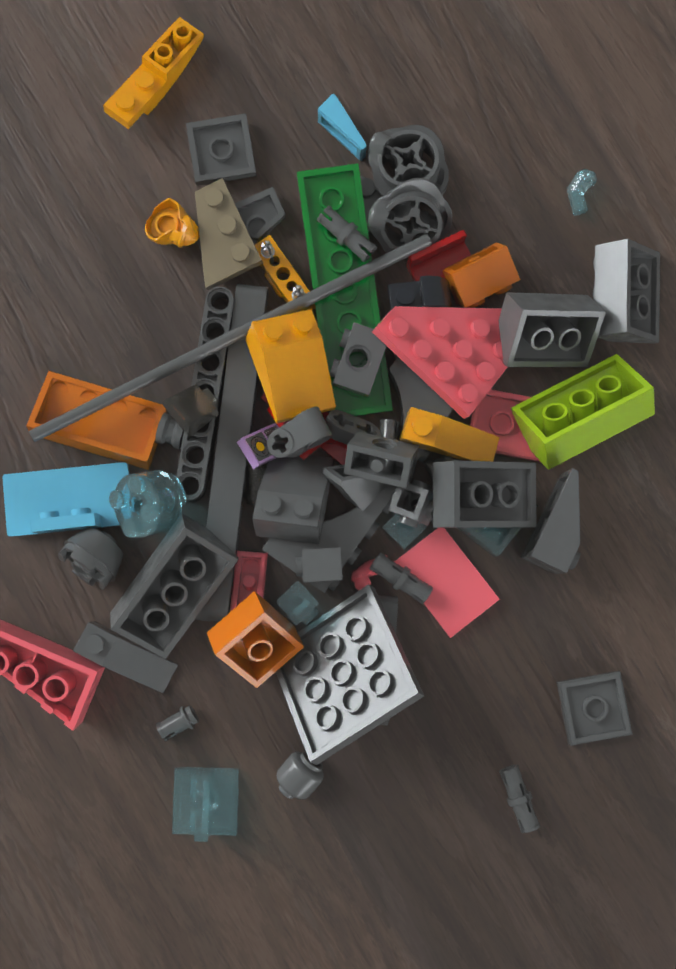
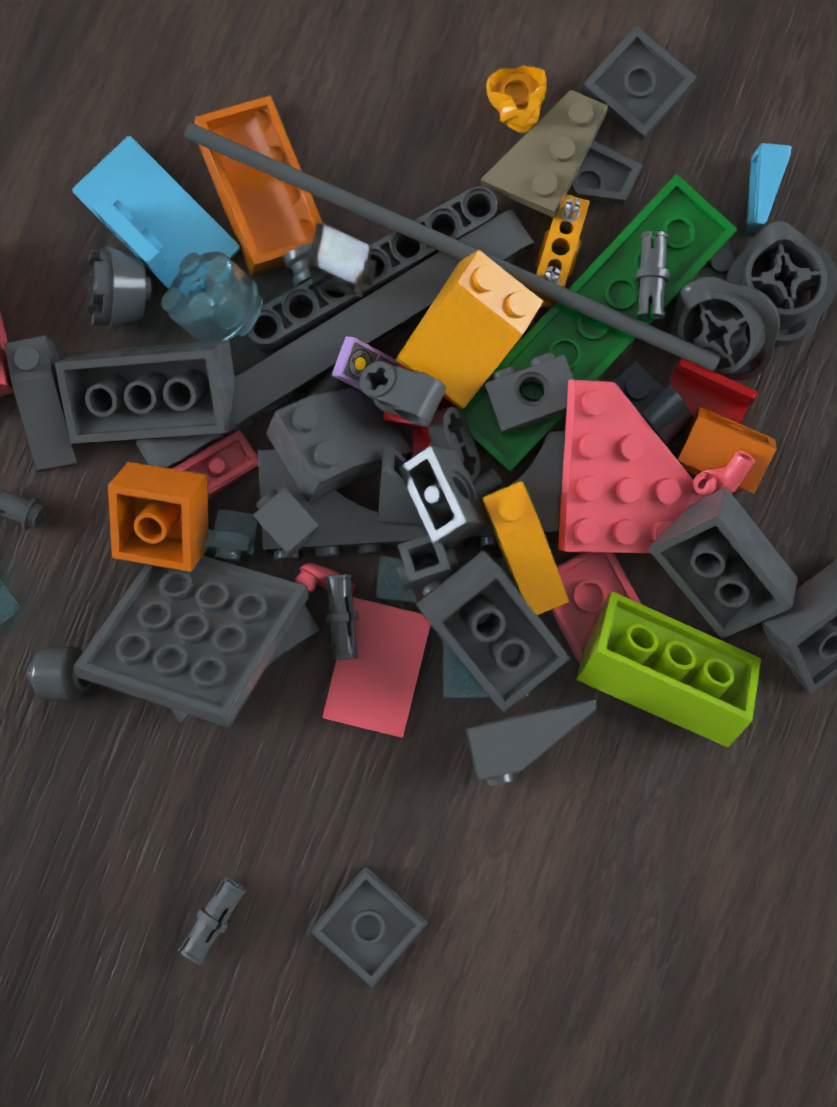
camera: 60 degrees right, 0 degrees up
(496, 294) = (731, 476): none -> coral arm

